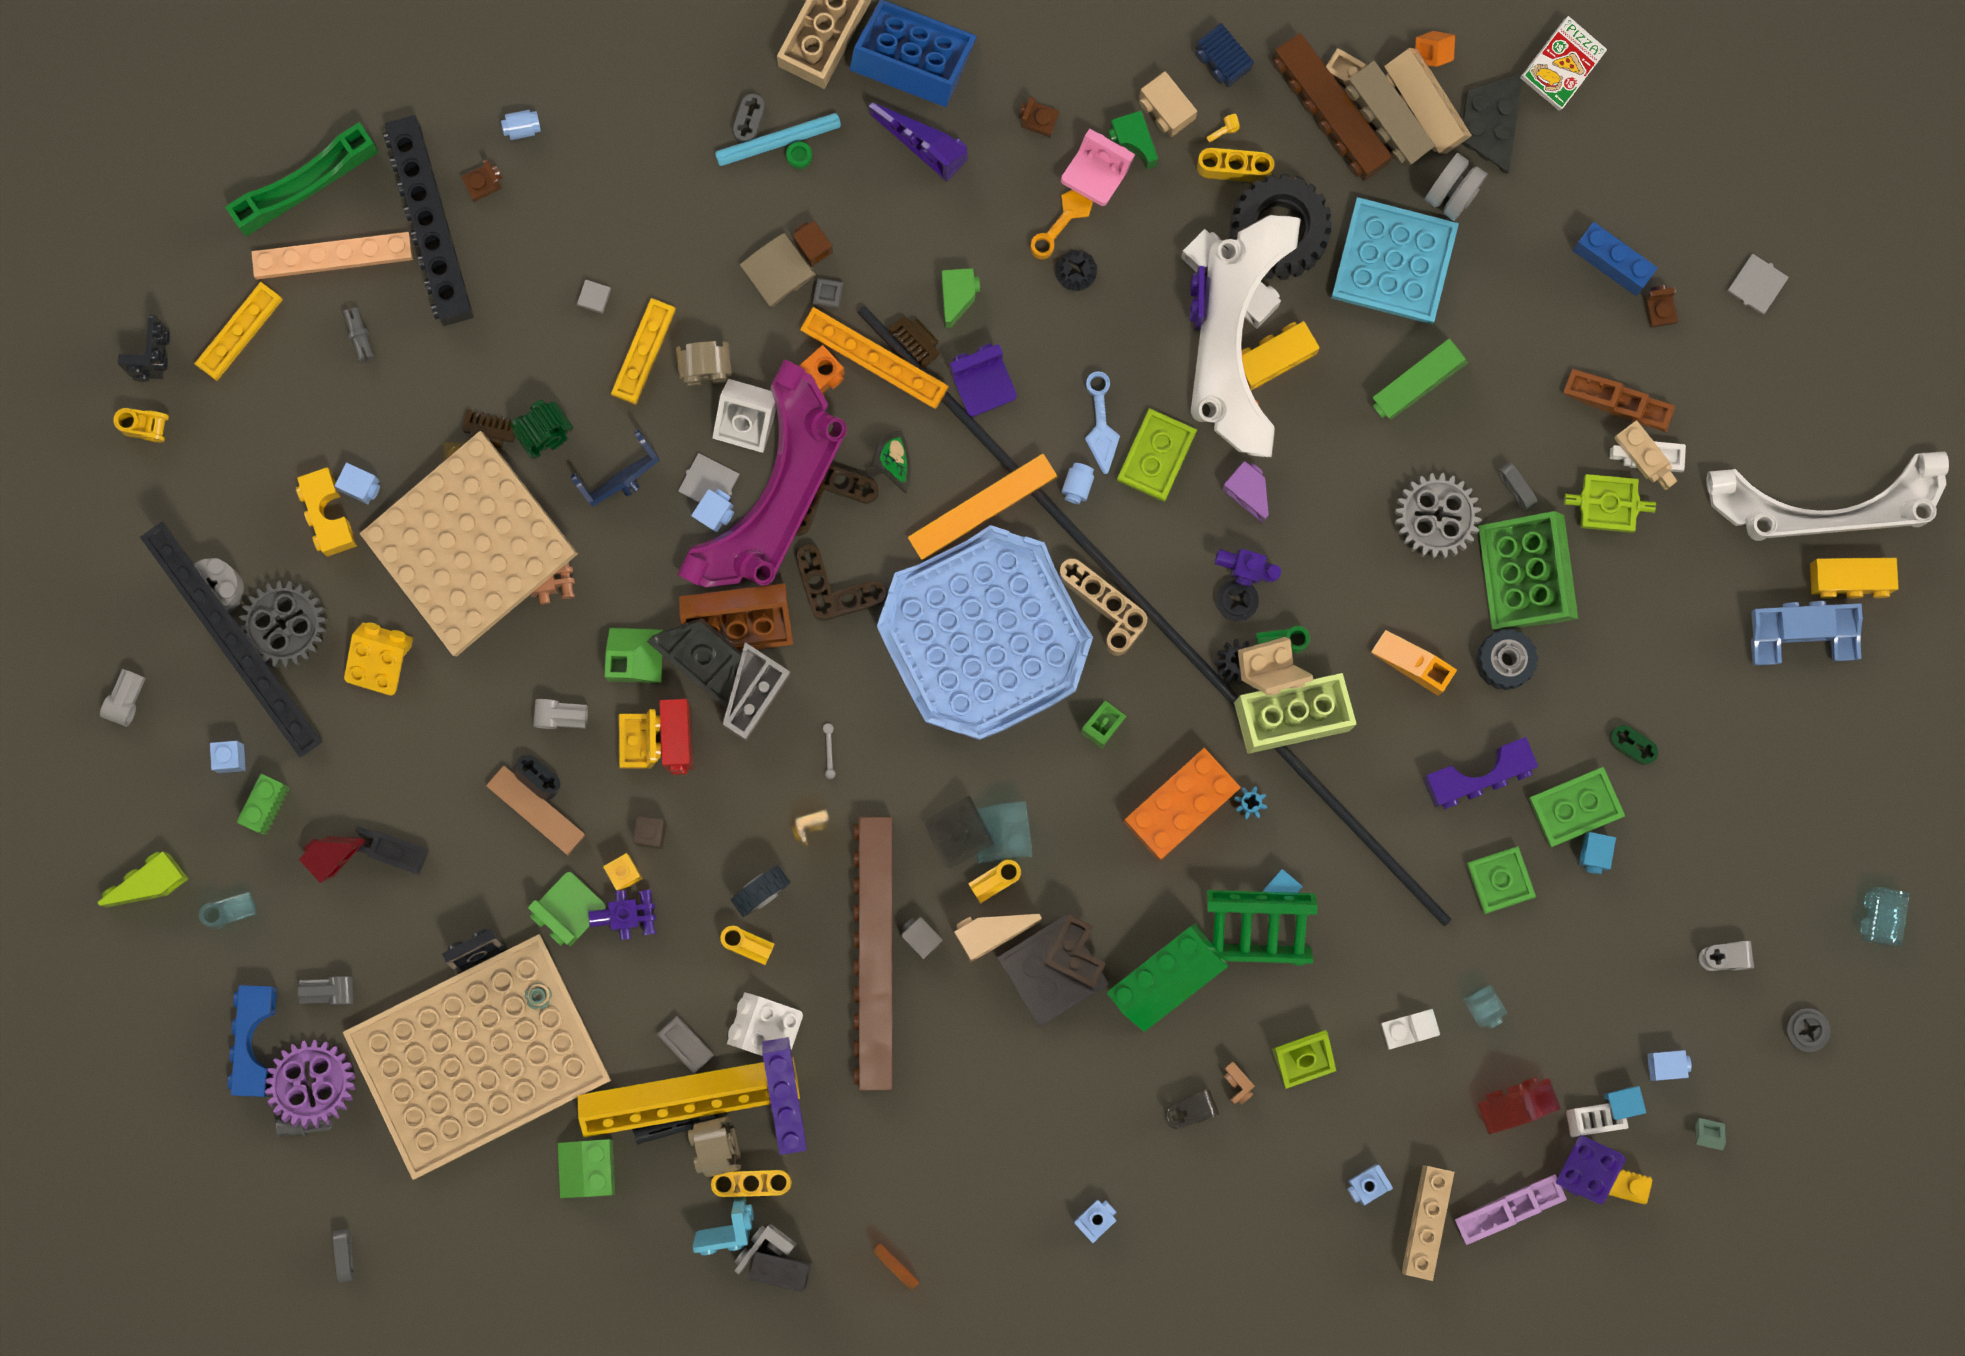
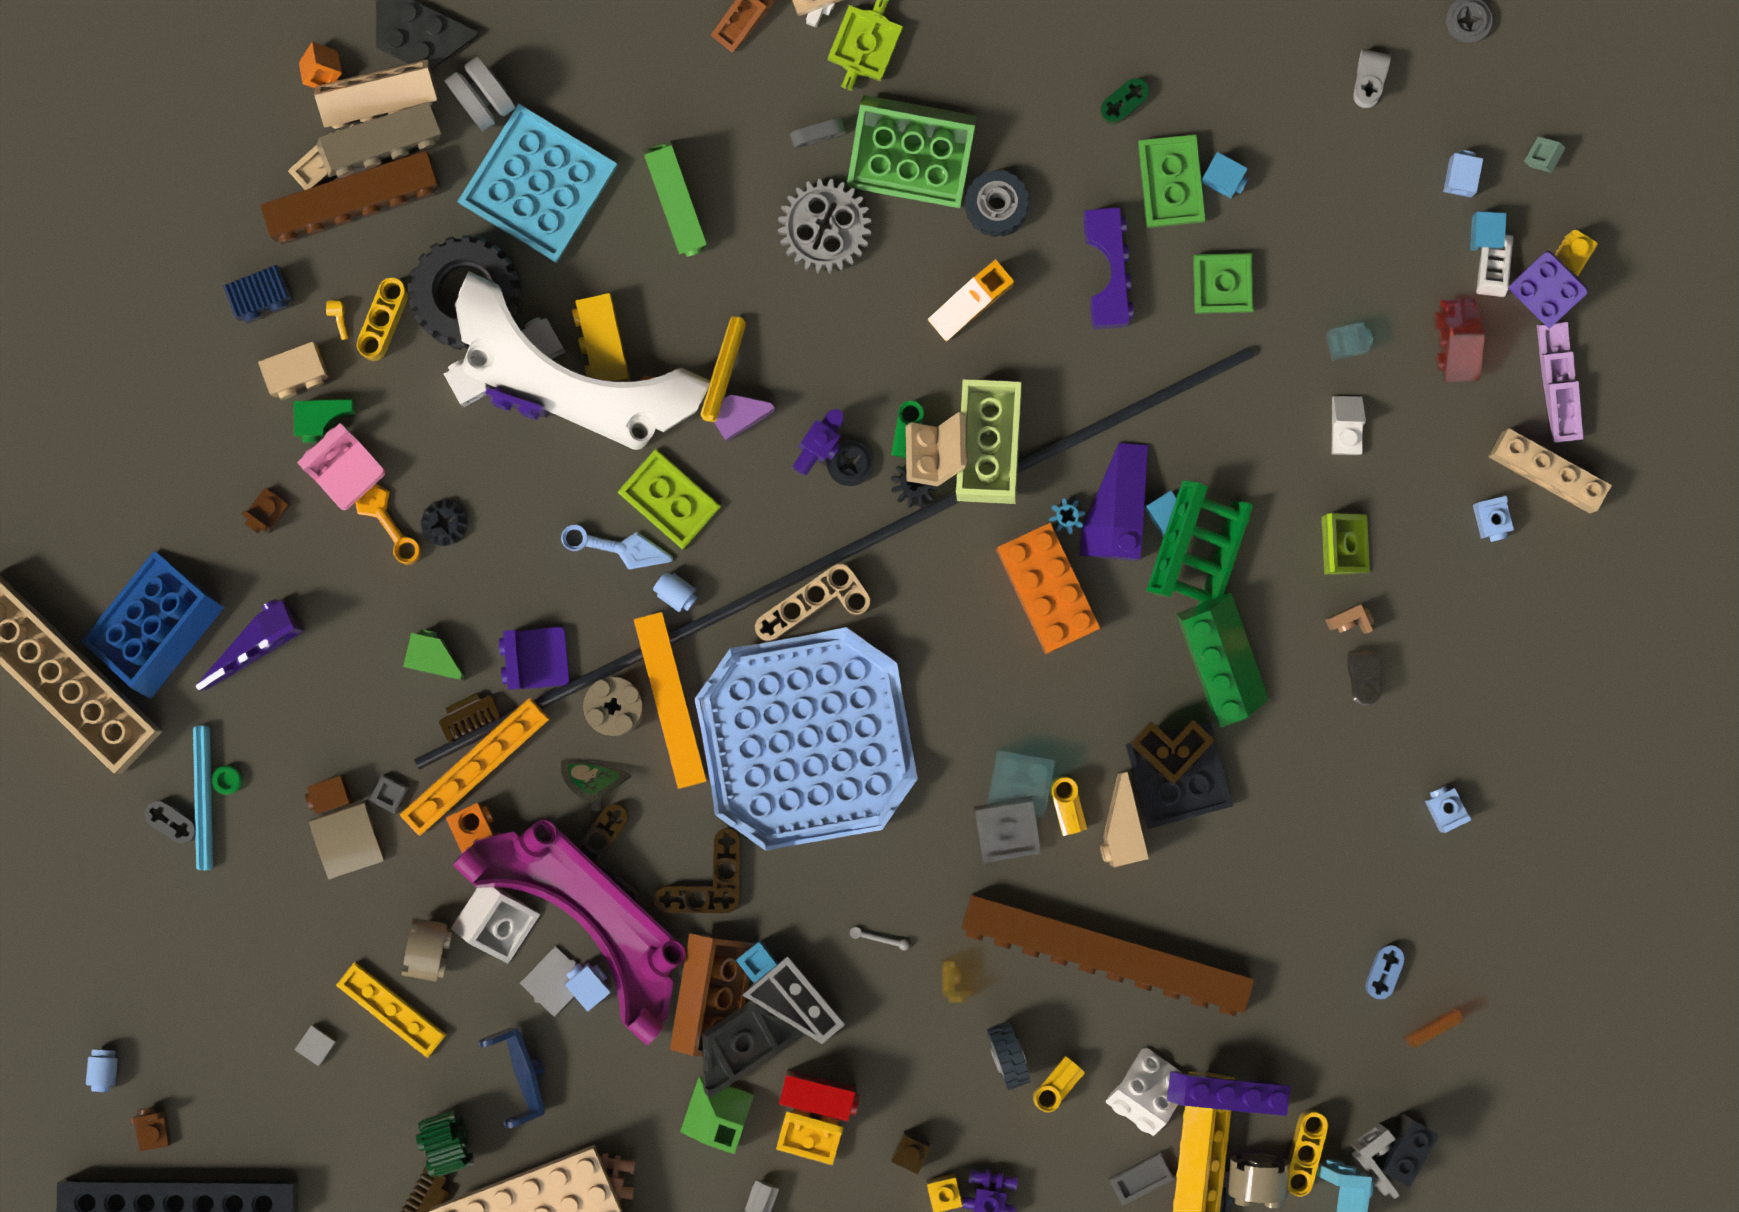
camera: 65 degrees left, 5 degrees up
(778, 648) = (757, 961): none -> dark azure panel
(921, 937) = (1104, 901): brick -> none
(934, 1201) = (1391, 974): none -> medium blue beam
(948, 464) = (600, 716): none -> dark tan brick
(1103, 724) = (938, 643): bright green slope -> none
(1267, 847) = (1117, 513): none -> dark purple wedge
(1285, 465) = (723, 369): none -> yellow axle

